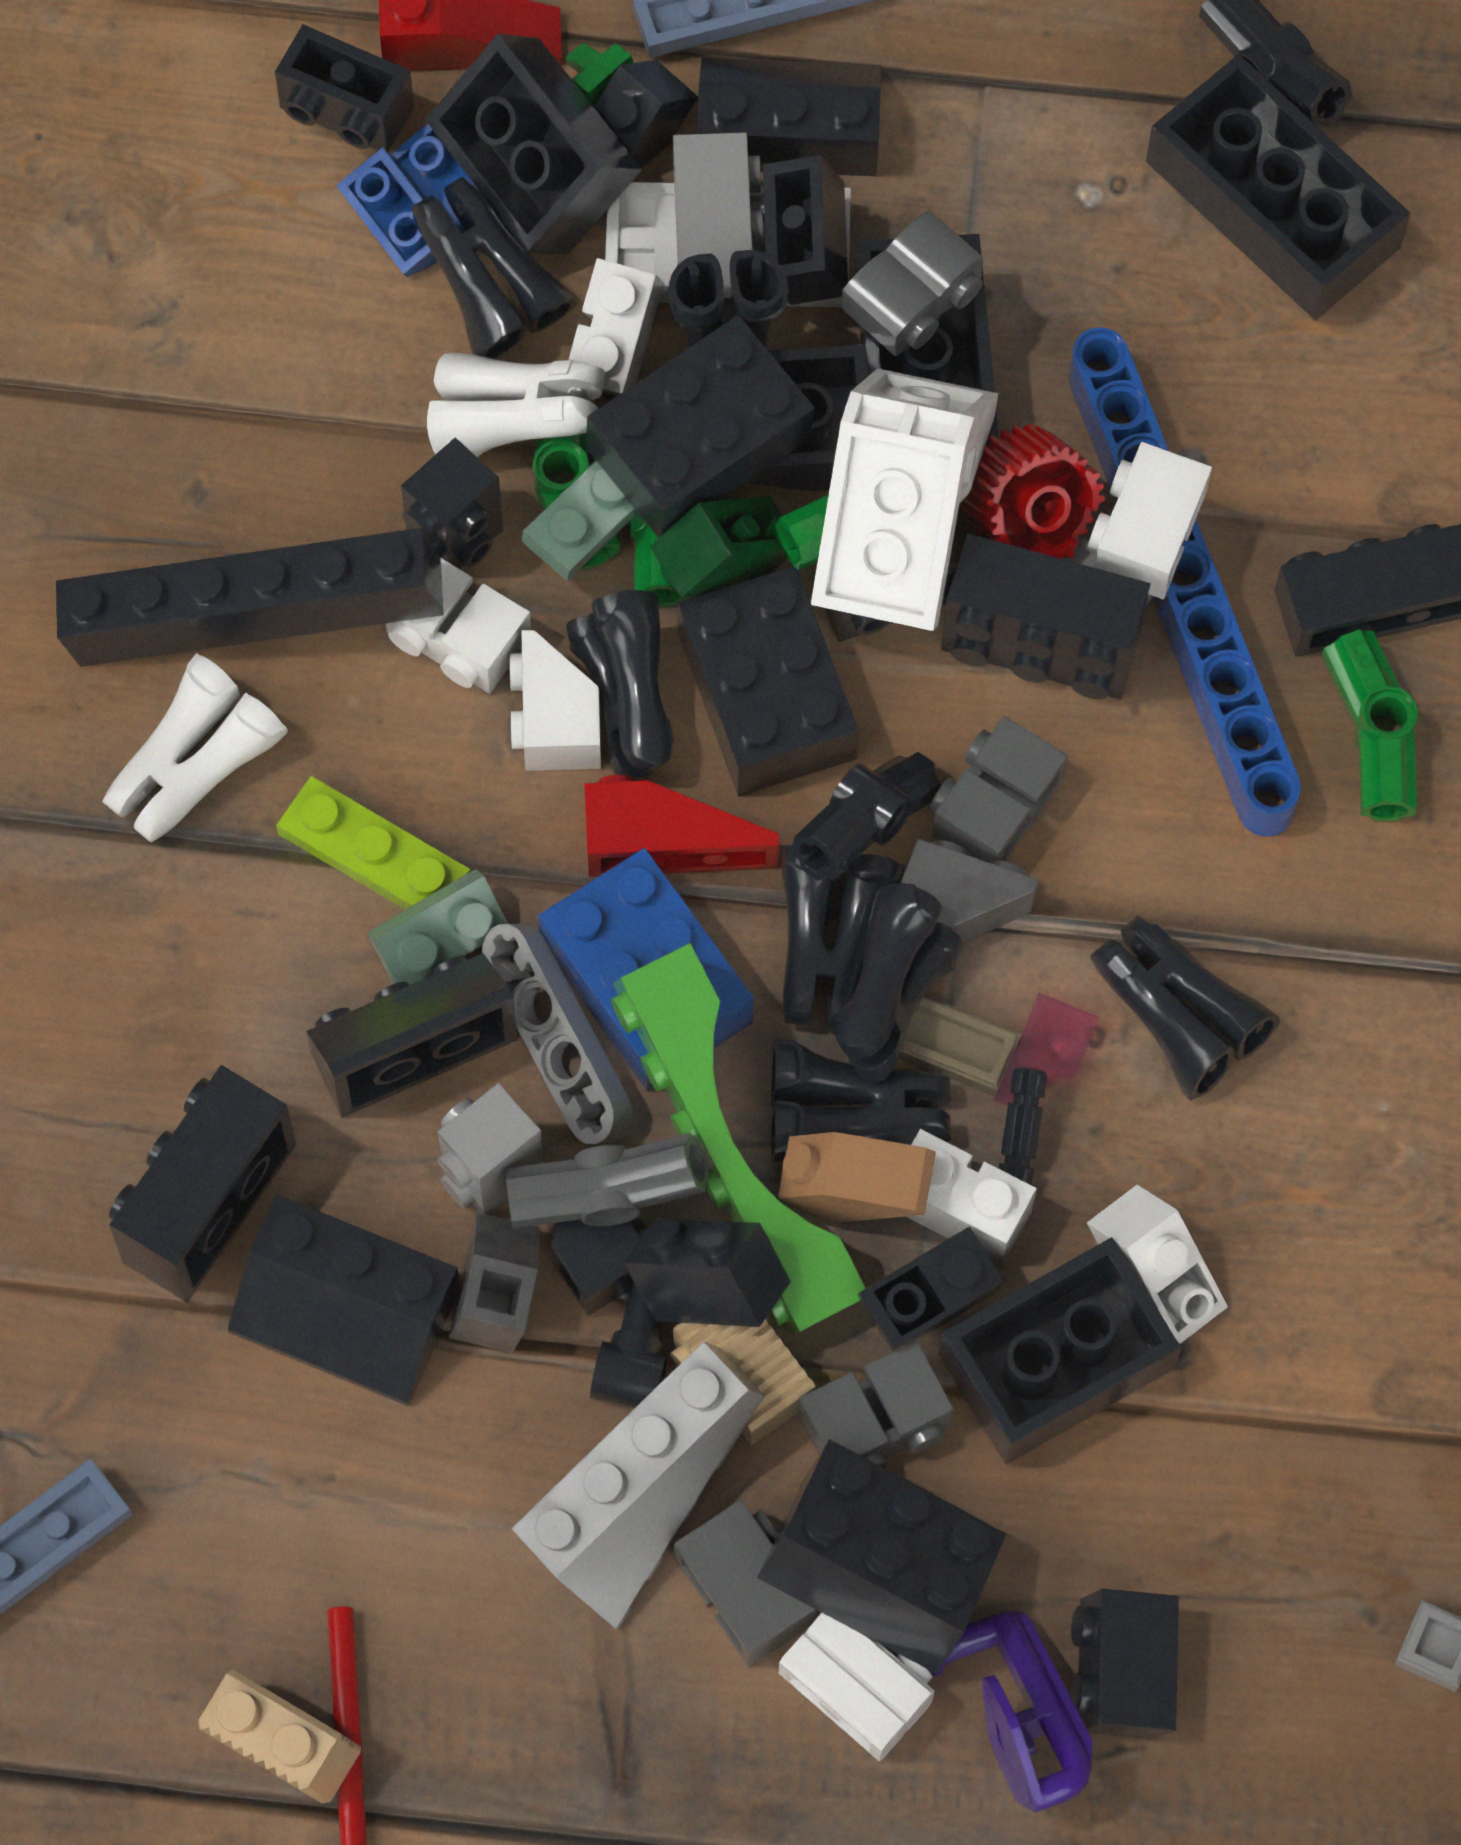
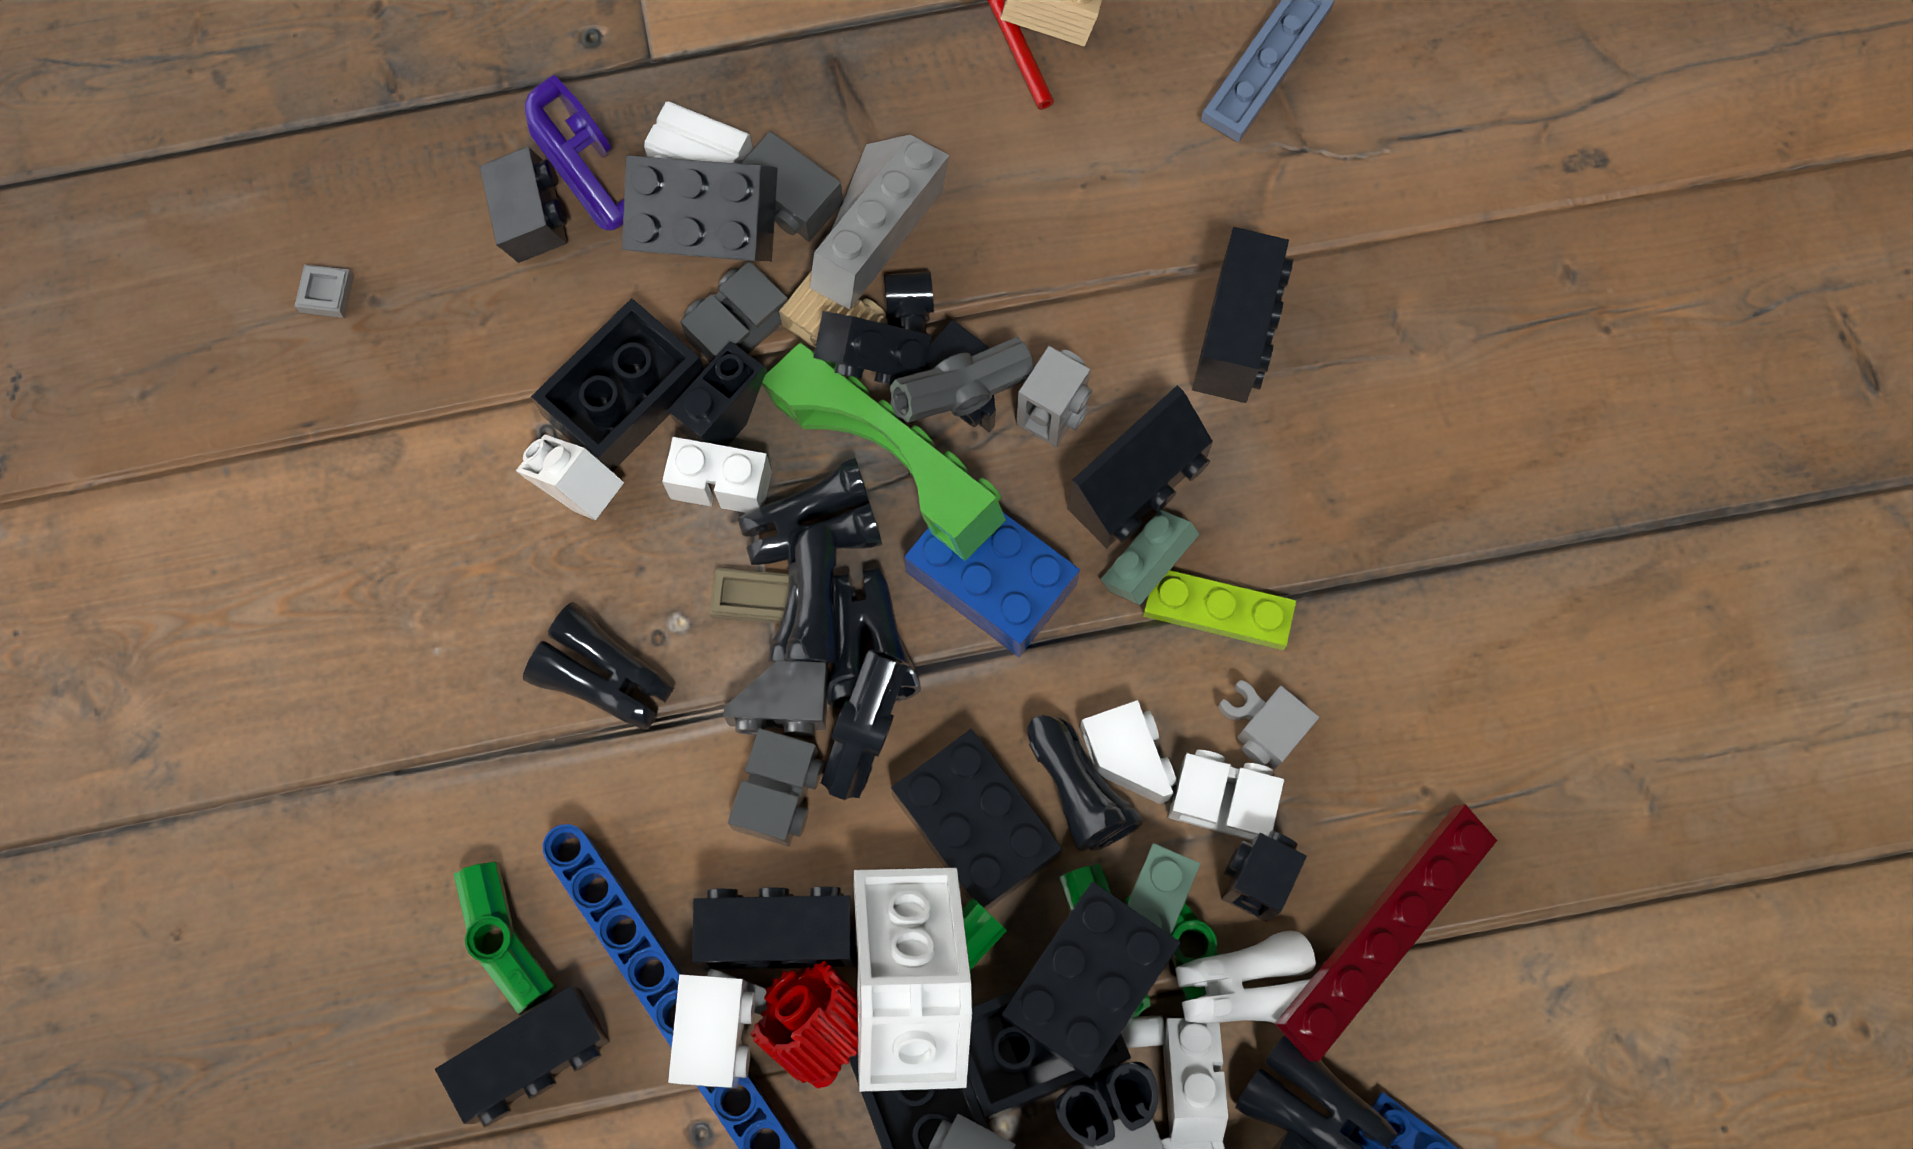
camera: 165 degrees right, 5 degrees up
(199, 704) = (1390, 673): white piece -> none
(249, 597) = (1384, 749): black brick -> none
(329, 416) = (1385, 933): none -> dark red plate
(343, 1299) = (1117, 290): black slope -> none
(368, 685) = (1273, 725): none -> light grey brick
(496, 1284) = (1017, 309): flat silver slope -> none
(564, 1026) = (1073, 541): light grey beam -> none
(672, 828) = (1019, 680): red slope -> none
(720, 545) = (1041, 907): dark green brick -> none
(855, 1177) = (789, 443): medium nougat slope -> none
(1023, 1122) = (688, 538): black axle -> none
(1051, 1041) = (686, 610): clear pink slope -> none

